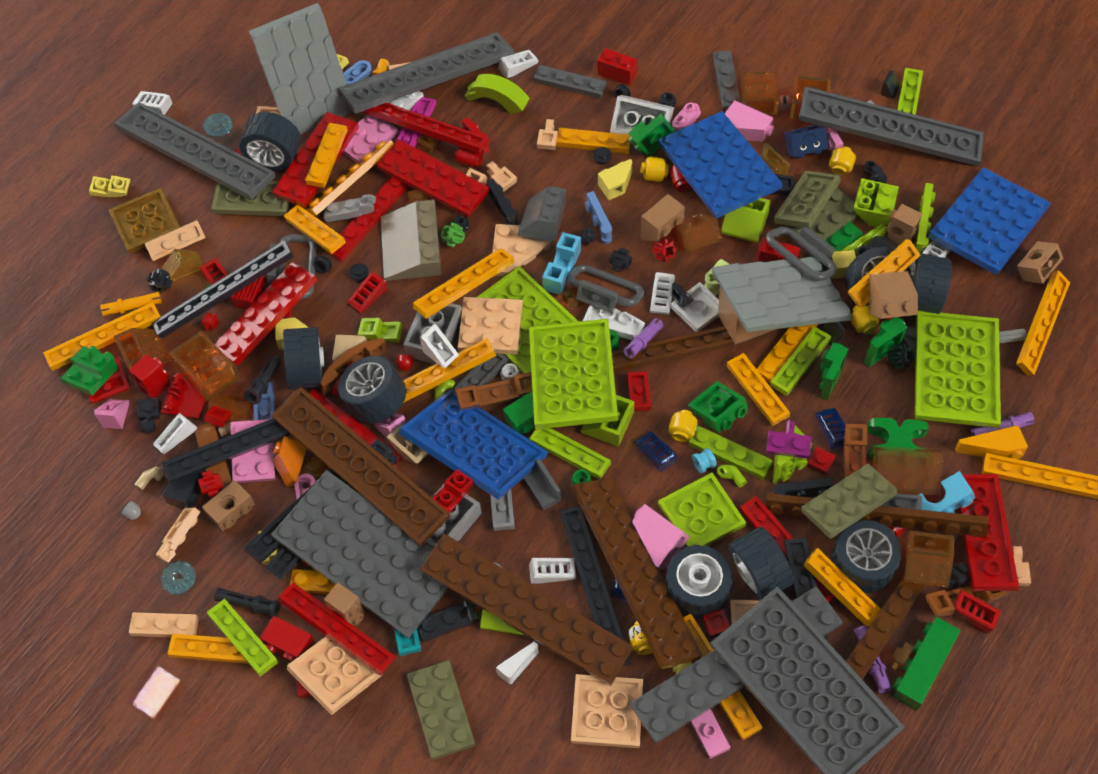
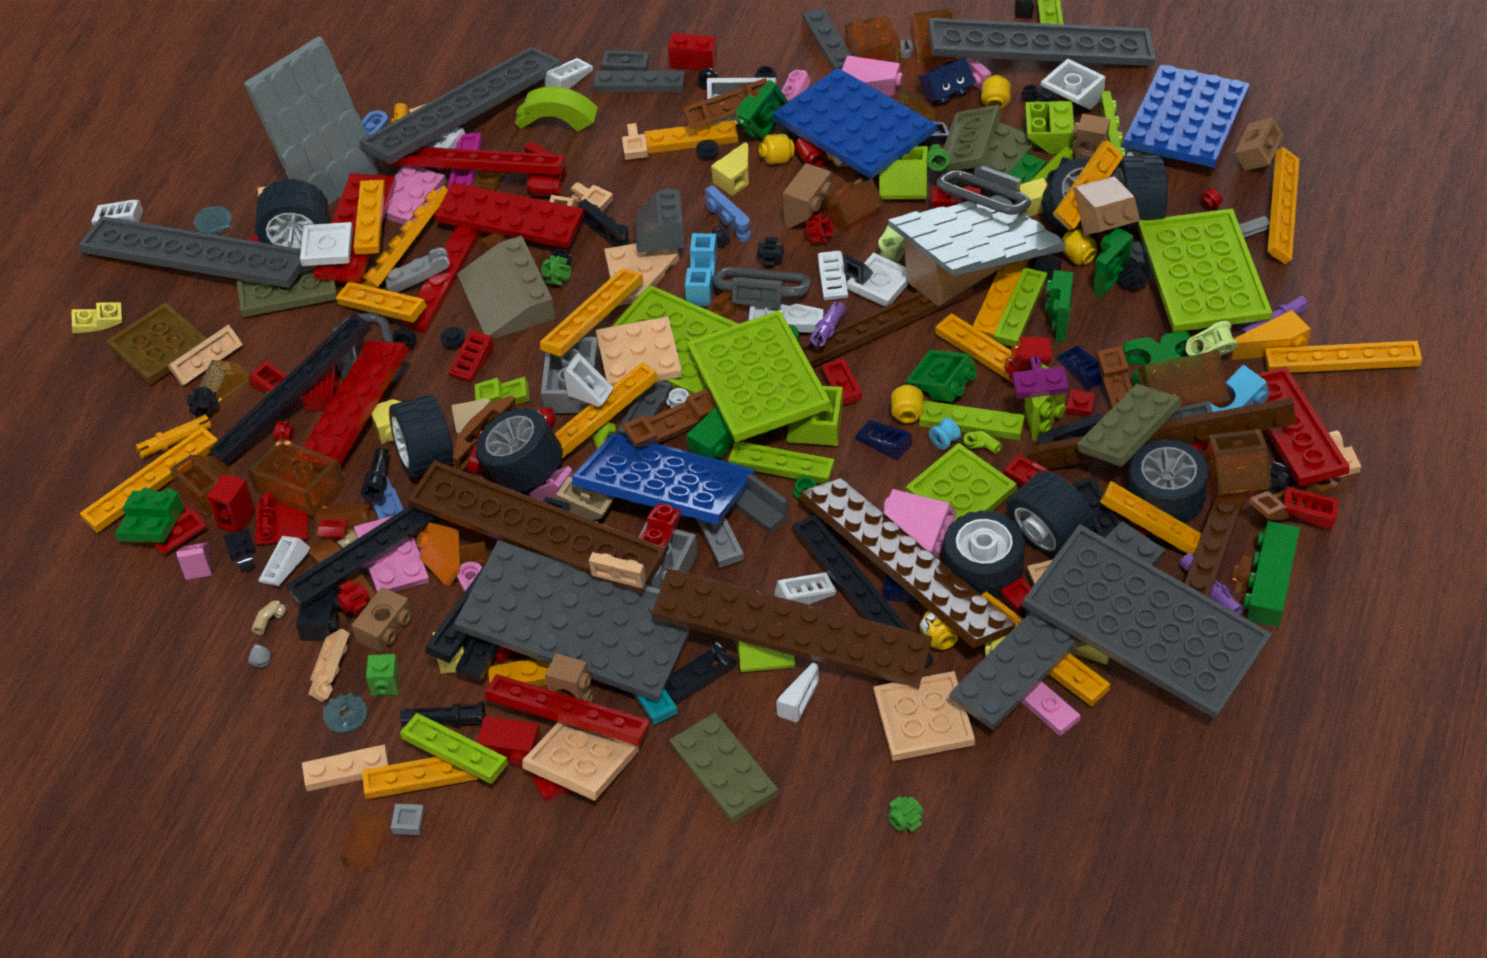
camera: 15 degrees left, 10 degrees down
(192, 685) = (407, 819): none -> light grey plate
(213, 555) = (383, 675): none -> bright green brick
(286, 171) = (326, 244): none -> white plate
(399, 520) = (617, 570): none -> light nougat plate
(564, 61) = (625, 60): none -> dark grey plate
(621, 122) = (720, 106): none -> dark orange slope
(774, 212) = (937, 158): none -> bright green cone
(785, 412) = (1024, 350): none -> red brick
(907, 171) = (1076, 83): none -> white slope
(945, 437) = (1214, 338): none -> yellowish green piece
(985, 301) = (1211, 199): none -> red plate

